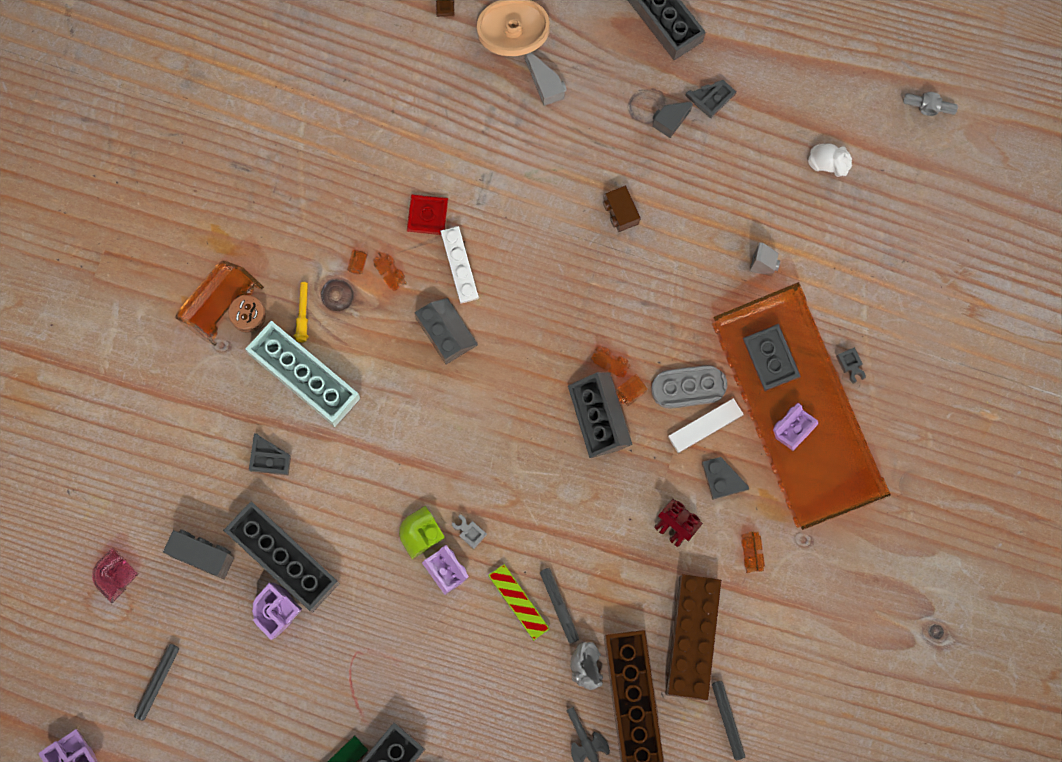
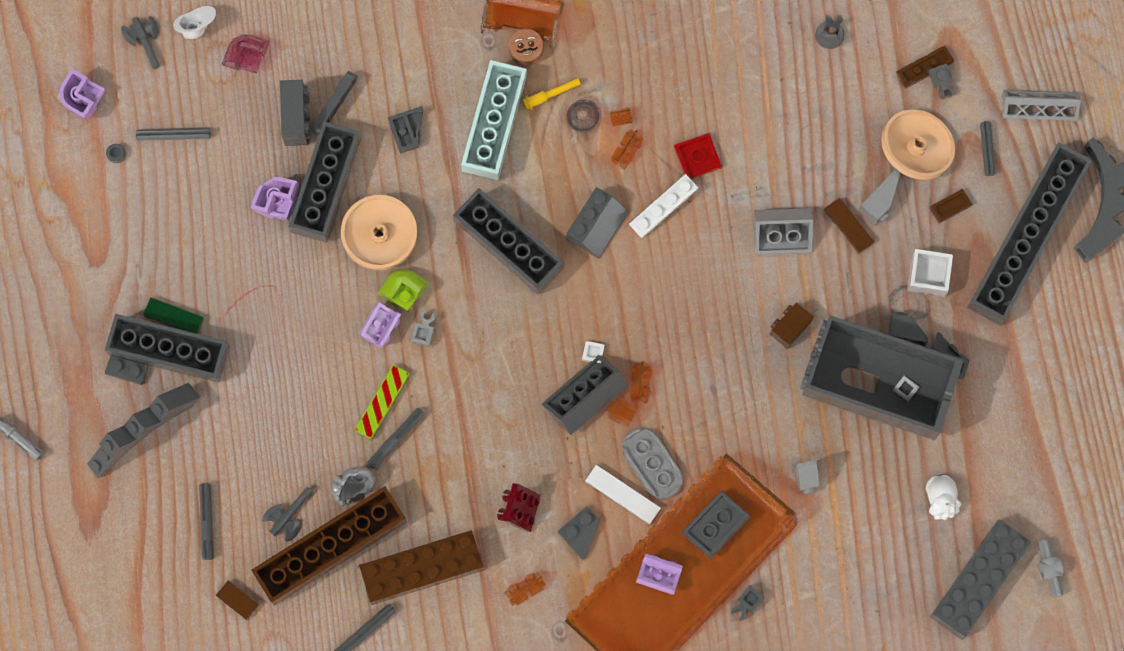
camera: 70 degrees right, 0 degrees up
(37, 666) = (141, 32): none -> dark grey piece
(56, 610) = (195, 22): none -> white piece
(146, 747) = (116, 153): none -> dark grey tile
(208, 513) = (335, 101): none -> dark grey beam
(343, 516) = (374, 216): none -> light nougat dish
(377, 56) = (829, 40): none -> dark grey piece
(425, 415) = (508, 241): none -> dark grey brick
(533, 174) = (783, 231): none -> light grey slope
(554, 119) = (849, 225): none -> reddish brown tile
(561, 390) = (592, 350): none -> white tile
(578, 30) = (950, 206): none -> reddish brown tile
(630, 73) = (930, 272): none -> white piece
(721, 144) = (905, 397): none -> white tile
(728, 136) = (889, 358): none -> dark grey panel
(916, 163) = (980, 579): none -> dark grey brick

